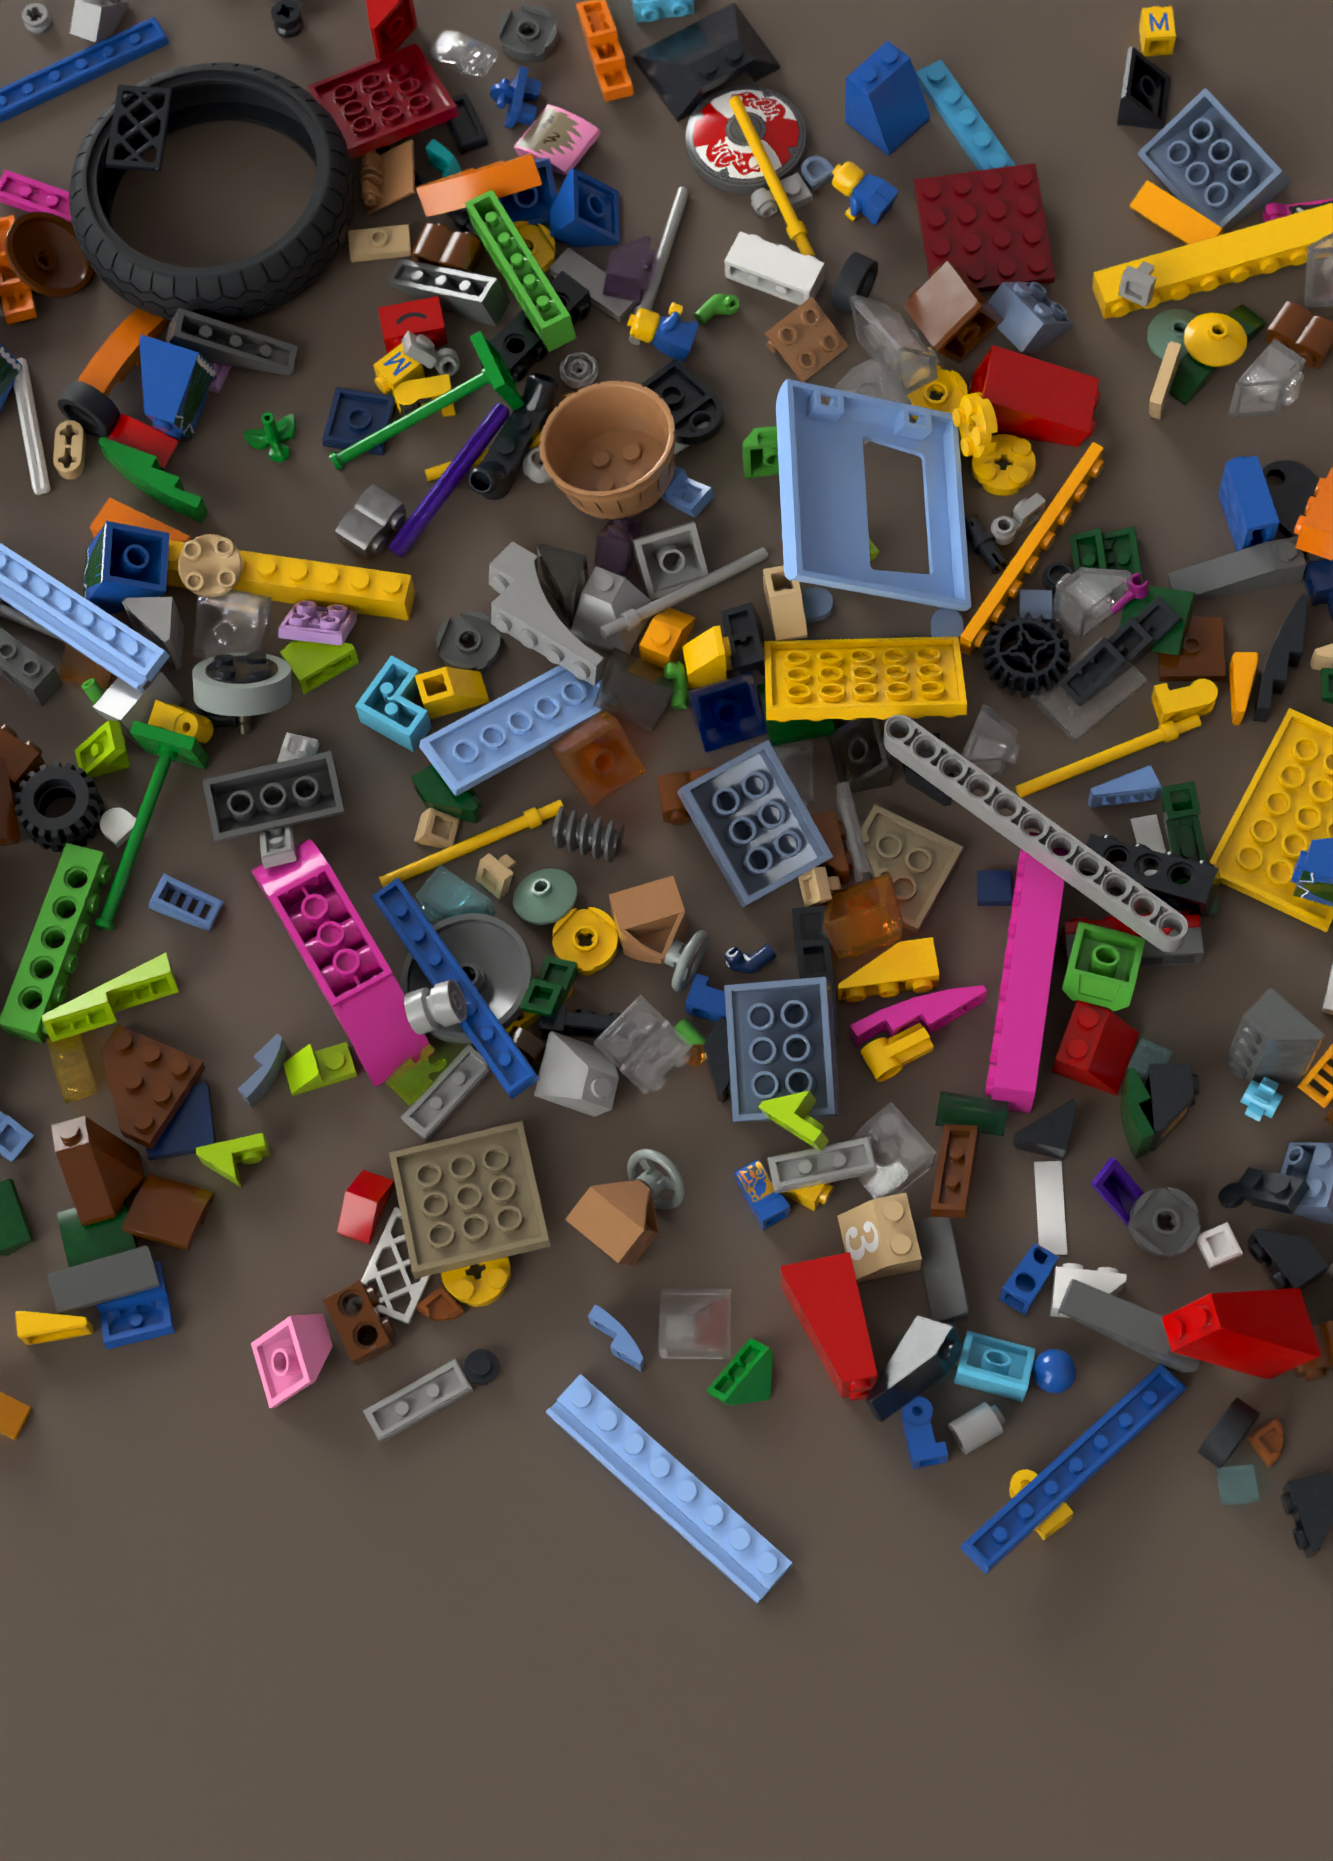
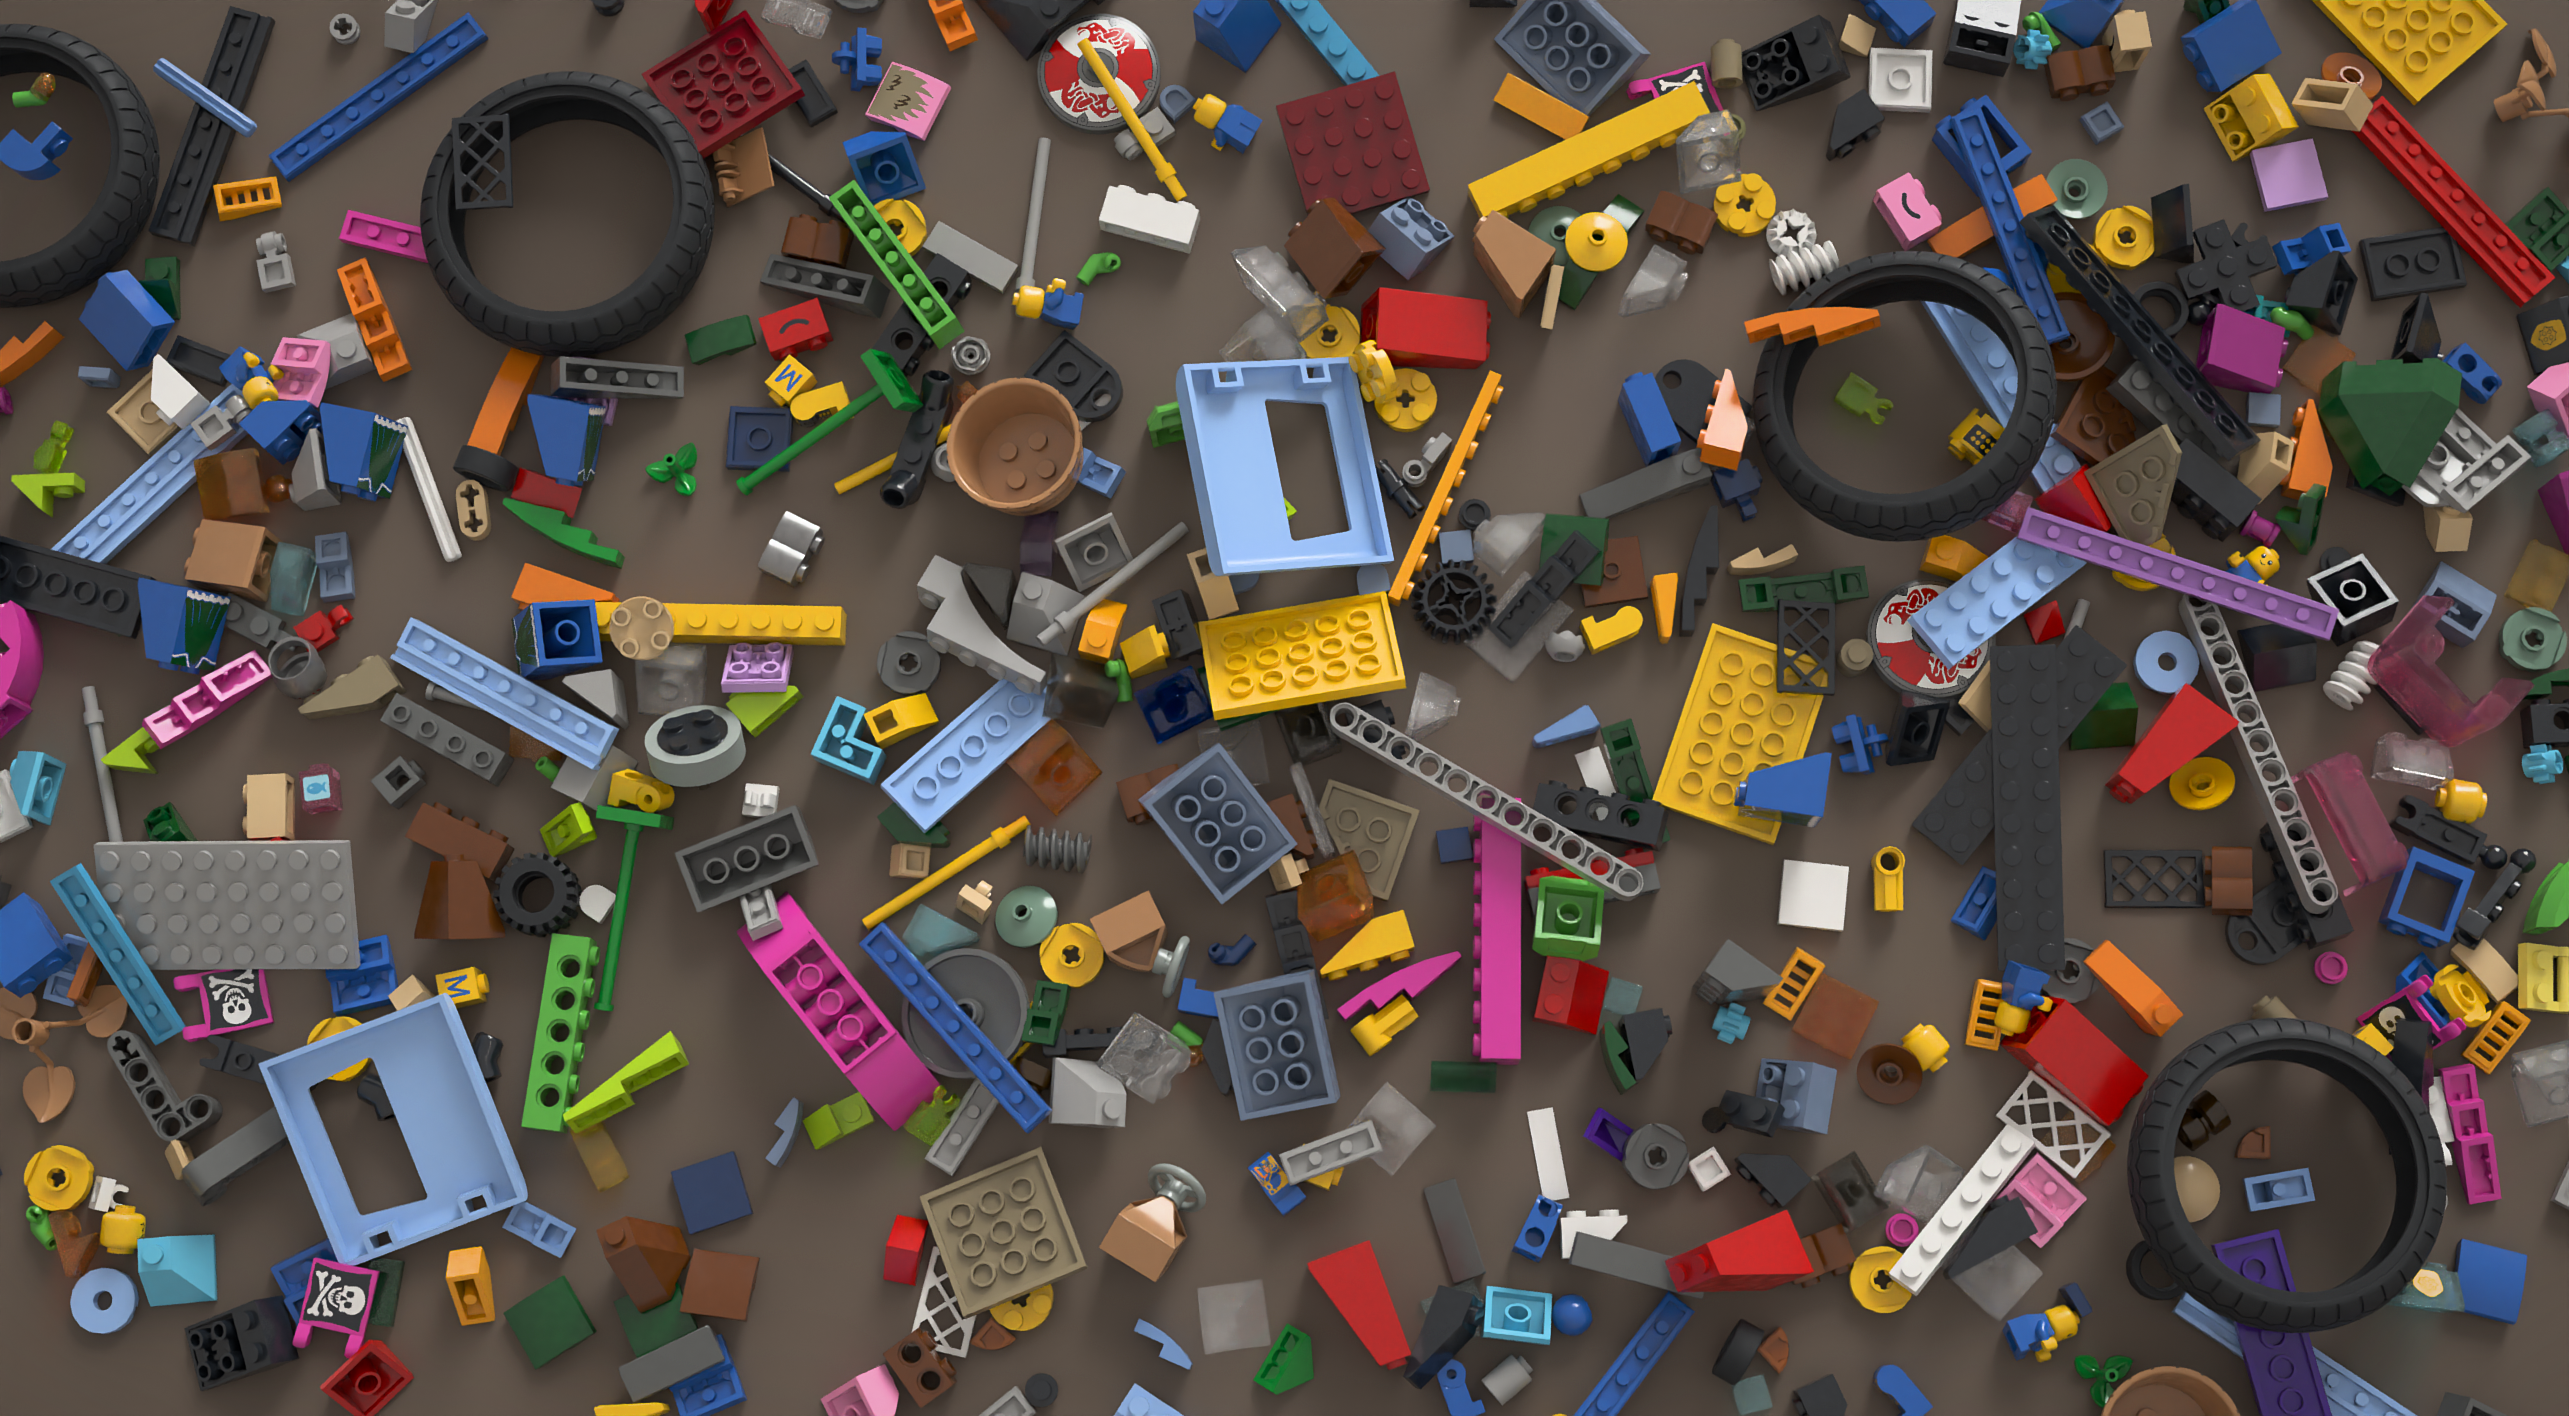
camera: 10 degrees left, 10 degrees up
(49, 241) = (412, 286): reddish brown dish -> none
(147, 1083) = (675, 1162): reddish brown plate -> none
(180, 888) = (663, 981): medium blue slope -> none
(225, 1155) = (764, 1223): lime slope -> none
(339, 324) = (720, 338): none -> dark green slope
(379, 243) = (746, 239): tan plate -> none
(423, 351) = (811, 360): light grey plate -> none
(431, 1008) = (938, 1058): light grey wheel -> none
(442, 159) = (809, 157): teal slope -> none
(449, 480) = (861, 494): dark purple axle -> none
(457, 189) = (830, 174): orange slope -> none
(585, 212) = (950, 180): blue slope -> none
(627, 271) = (1002, 242): clear purple slope -> none
(792, 1114) = (1294, 1111): lime slope -> none
(806, 339) = (1192, 292): medium nougat hinge -> none
(854, 278) = (1231, 227): black tyre -> none
(881, 1238) = (1393, 1211): tan slope -> none
(955, 1171) = (1455, 1137): reddish brown plate -> none
(1048, 1134) = (1539, 1086): black slope -> none
(1107, 550) = (1519, 486): dark green slope -> none
(1128, 344) = (1512, 259): none -> medium nougat slope
(1134, 709) = (1564, 646): none -> light grey plate
(1136, 591) = (1547, 527): magenta hand -> none
(1138, 284) = (1514, 197): light grey tile -> none
(1166, 732) = (1598, 662): yellow bar -> none

